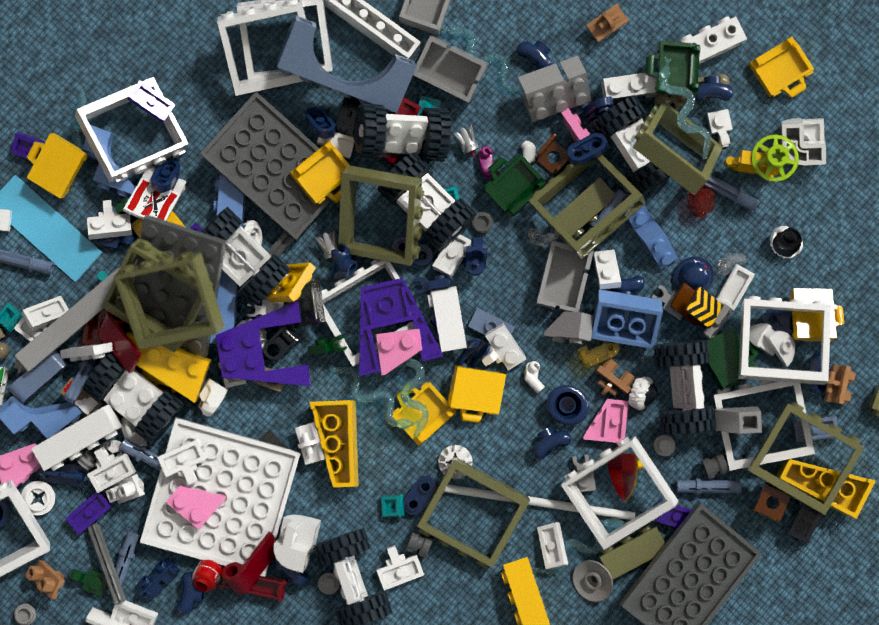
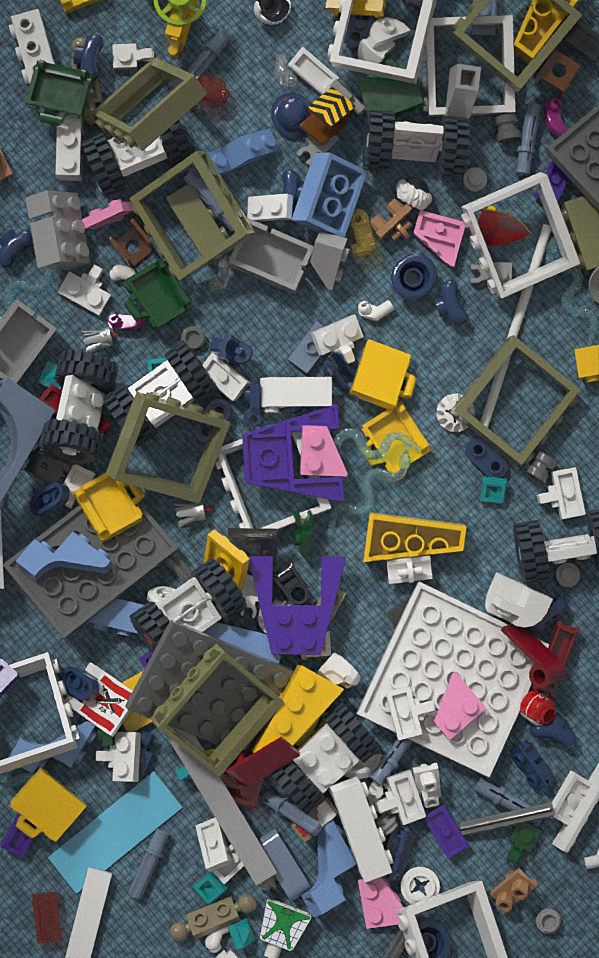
camera: 70 degrees left, 0 degrees up
(86, 352) = (266, 802): white plate -> none
(135, 312) = (266, 694): olive window -> none
(274, 148) = (72, 553): none -> medium blue arch
(342, 263) = (213, 500): dark blue piece -> none
(508, 123) = (86, 290): none -> white hinge
(552, 545) = (566, 320): white plate -> none
(586, 150) = (133, 206): dark blue plate -> none
(597, 107) = (87, 187): dark blue plate -> none
(664, 75) = (66, 104): clear light blue animal -> none
(731, 506) = (553, 117): none -> magenta arm

